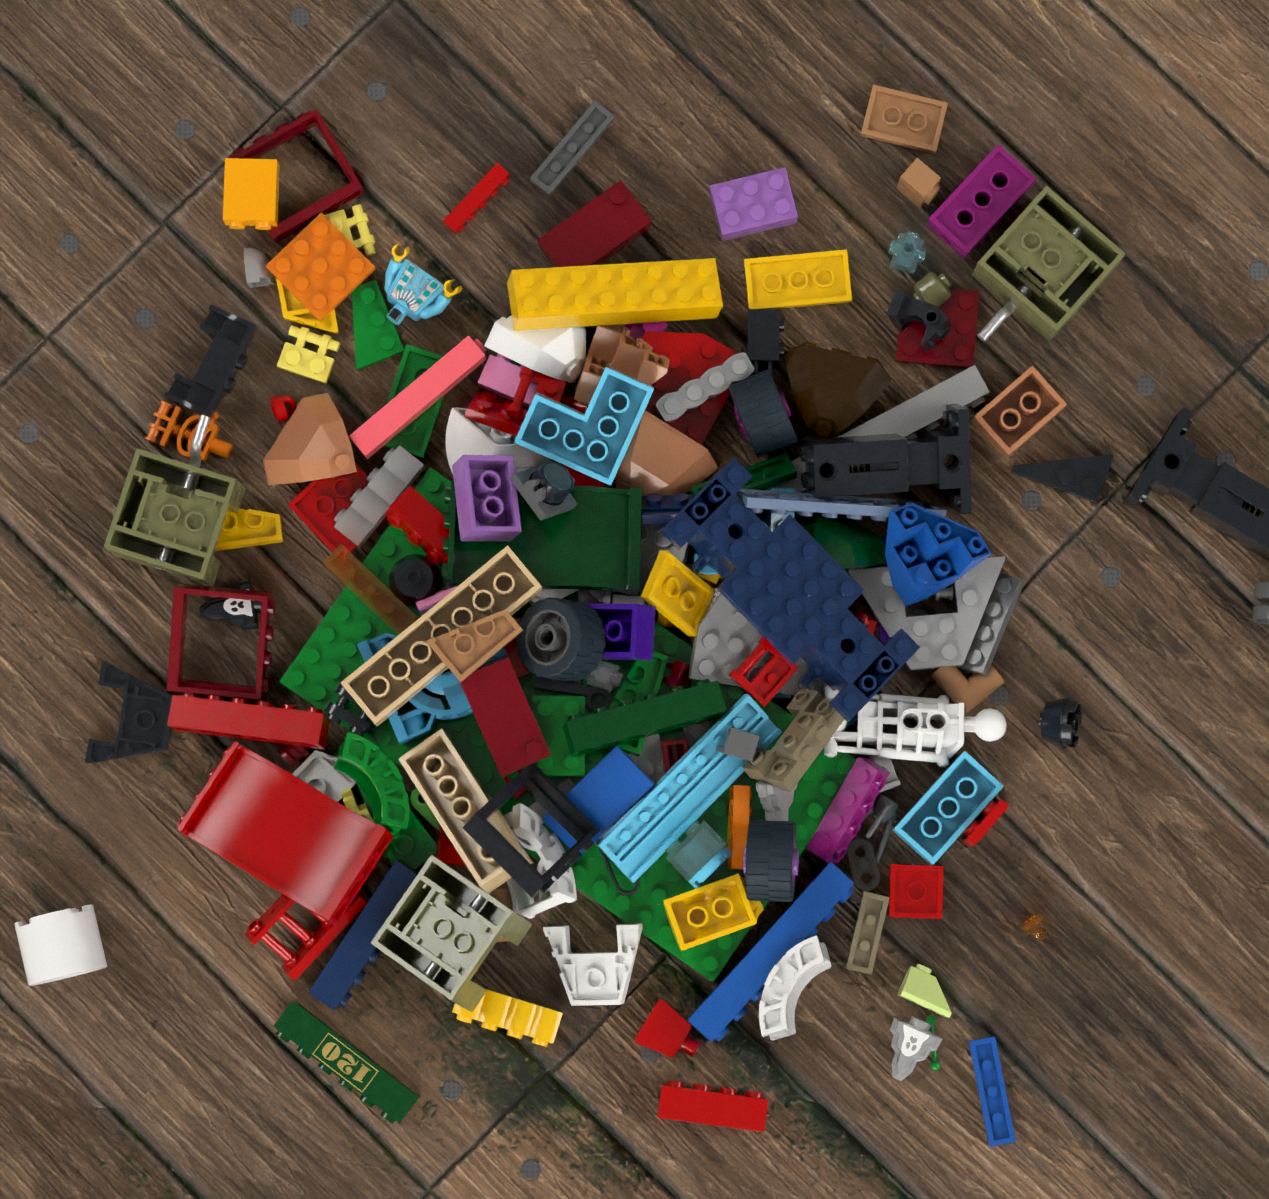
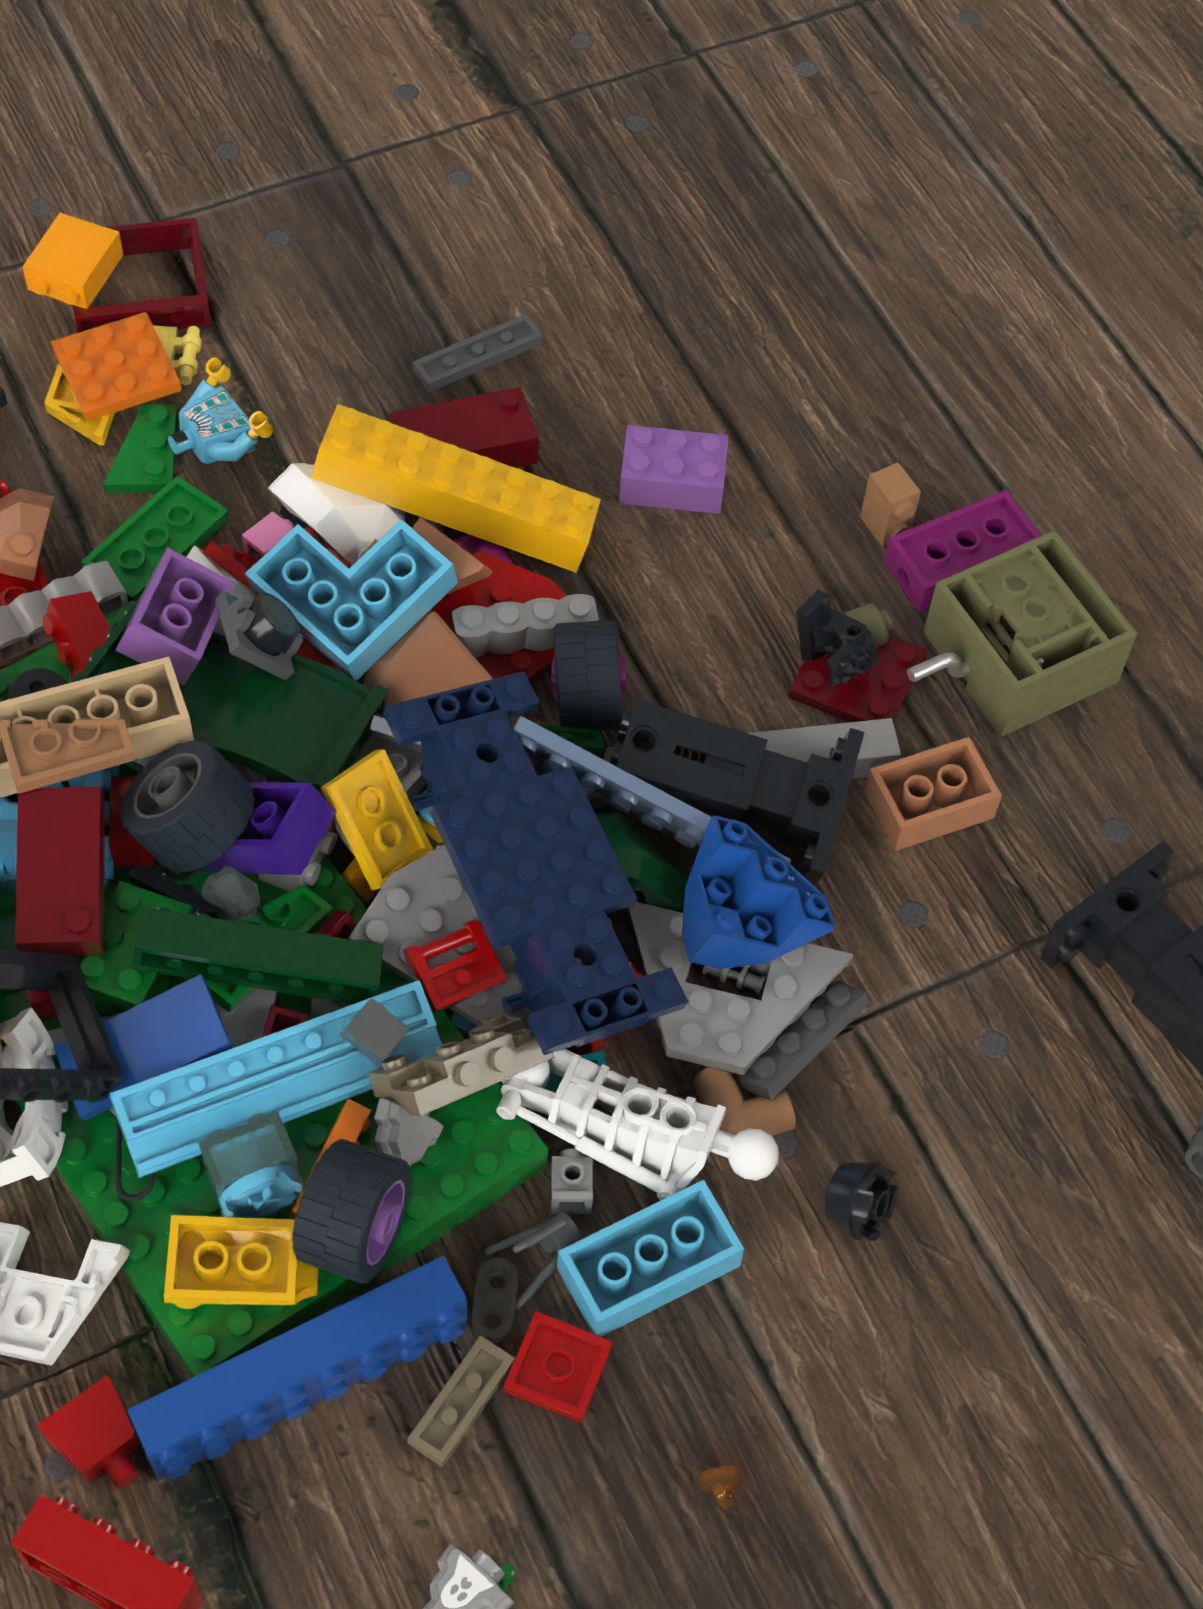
camera: 15 degrees right, 25 degrees down
(256, 272) = (37, 352): light grey brick -> none
(306, 362) = (47, 462): light yellow plate -> none
(418, 396) = (159, 524): coral brick -> none
(477, 199) = (339, 366): red piece -> none
(763, 338) = (630, 603): black brick -> none
(786, 984) = (305, 1420): white fence -> none
(798, 280) = (696, 566): yellow plate -> none
(833, 386) = (699, 677): dark brown brick -> none
(848, 810) = (502, 1204): magenta brick -> none
(904, 119) = (885, 437): medium nougat plate -> none
(905, 260) = (847, 575): clear light blue brick -> none
(924, 990) = (510, 1515): yellowish green slope -> none
(990, 814) = (692, 1299): red plate -> none
(1075, 476) = (984, 902): black wing -> none

